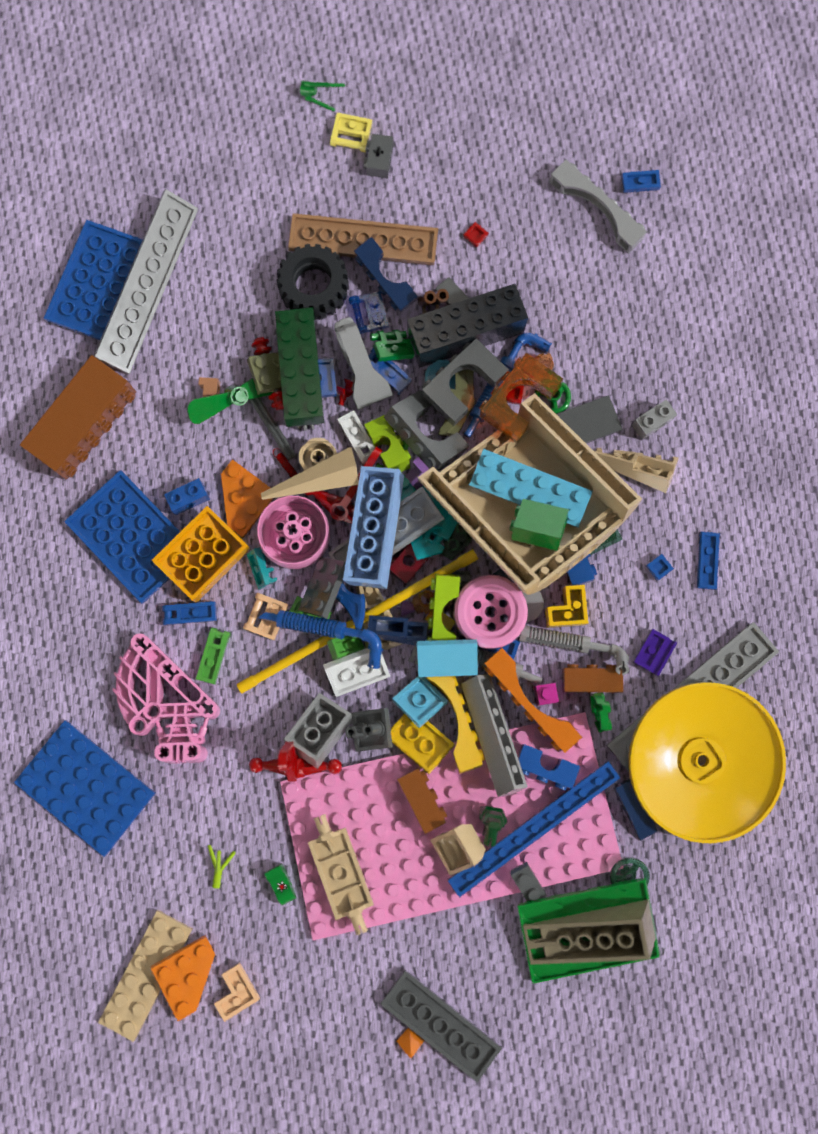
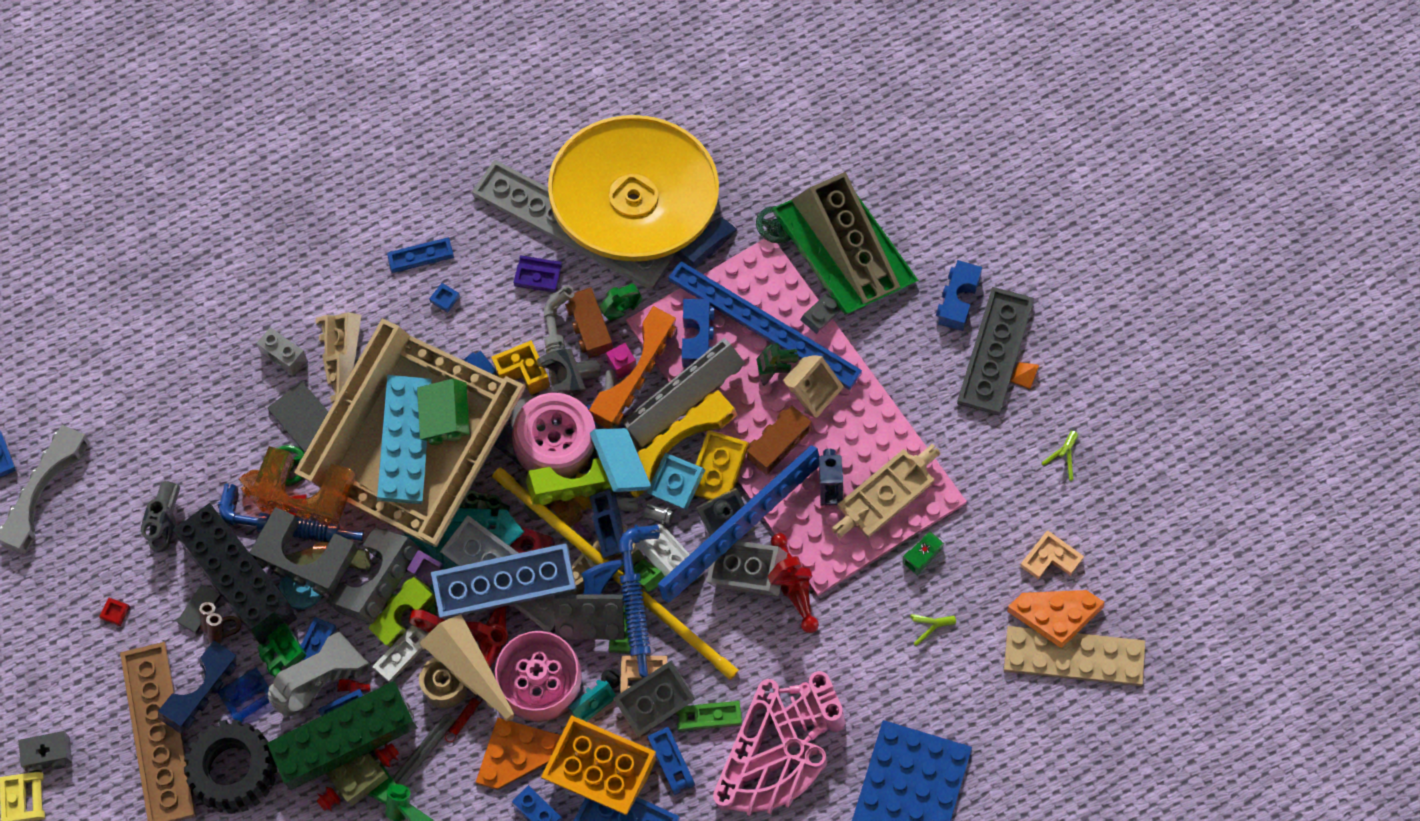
camera: 105 degrees left, 15 degrees down
(239, 617) = (654, 698): none -> dark grey plate
(275, 590) = (612, 676): none -> black piece
(321, 1047) = (1065, 449): none -> lime plant
(349, 733) = (739, 524): none -> blue plate
(363, 828) = (830, 478): none -> dark blue torso
(398, 677) = (658, 514): none -> light grey pin
(520, 1024) = (963, 278): none -> blue arch
(539, 285) = (160, 515): none -> dark grey connector
(547, 645) = (568, 372): none -> dark grey connector

